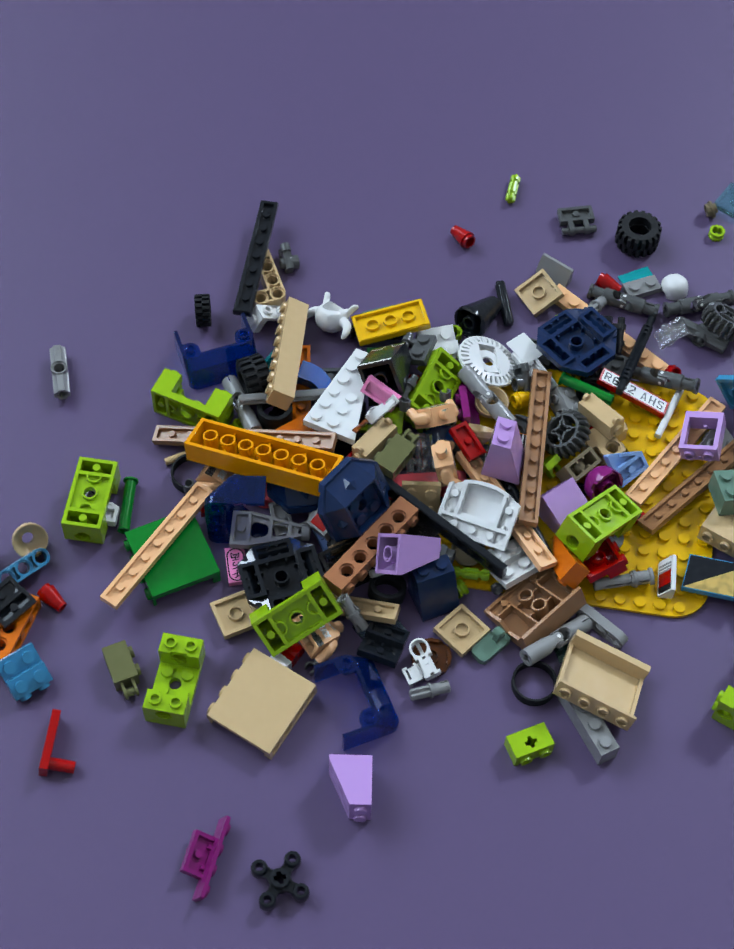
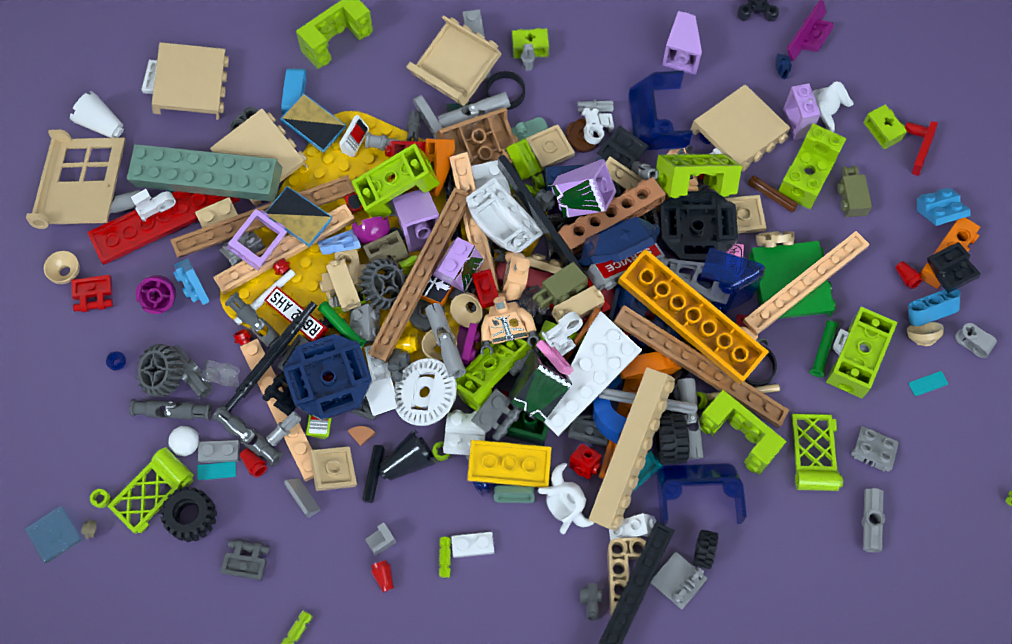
camera: 160 degrees left, 10 degrees up
(20, 505) = (928, 383): none -> teal sticker
(64, 430) = (875, 448): none -> light grey hinge
(95, 746) = (885, 126): none -> lime brick
(112, 394) = (816, 477): none -> lime piece
(169, 763) = (829, 100): none -> white hair
(194, 579) = (770, 239): none -> tan plate
(198, 730) = (800, 111): none -> lavender window
(218, 650) = (773, 193): none -> reddish brown axle
(221, 291) = (679, 580): none -> light grey hinge
(230, 801) = (783, 65): none -> dark blue piece
(324, 350) = (585, 461): none -> red brick
(399, 276) = (472, 544): none -> white plate
(418, 261) = (444, 557): none -> lime axle
(473, 259) = (380, 540): none -> light grey panel
(483, 607) = (523, 159): none -> lime slope
(524, 717) = (528, 57): none -> light grey axle
(528, 328) = (361, 434): none -> nougat tile
(612, 608) = (413, 126): none -> dark grey pin
(668, 434) = (281, 267): none -> red plate
(673, 260) = (170, 470): none -> lime piece
(677, 474) = (299, 216): none -> tile

